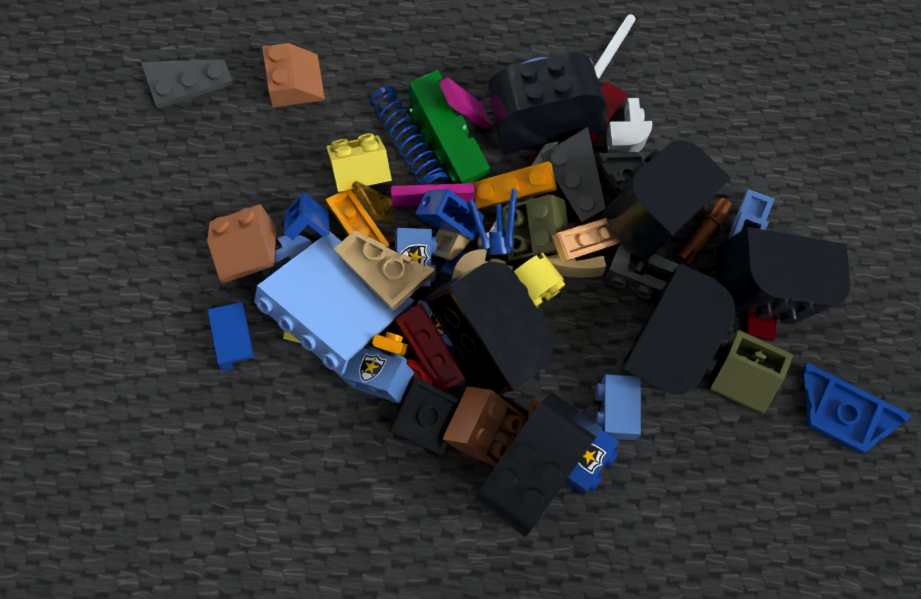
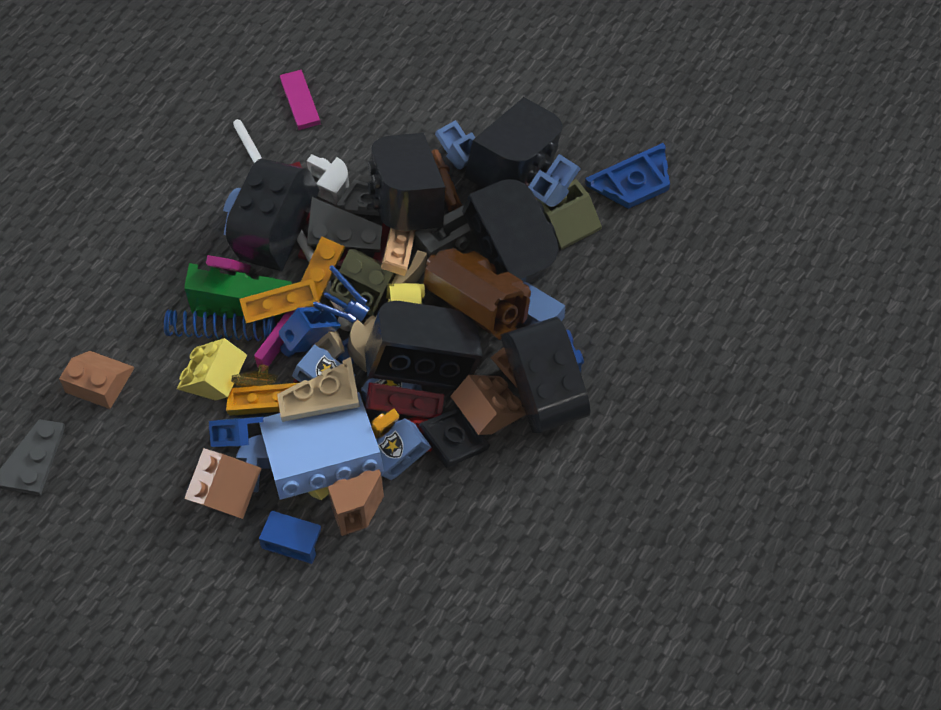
camera: 50 degrees left, 10 degrees down
(295, 371) = (356, 500): none -> nougat slope
(456, 170) = (279, 300): none -> light orange plate
(586, 341) = (472, 287): none -> reddish brown brick
(696, 52) = (300, 99): none -> dark pink tile
(762, 338) = (553, 185): none -> medium blue brick

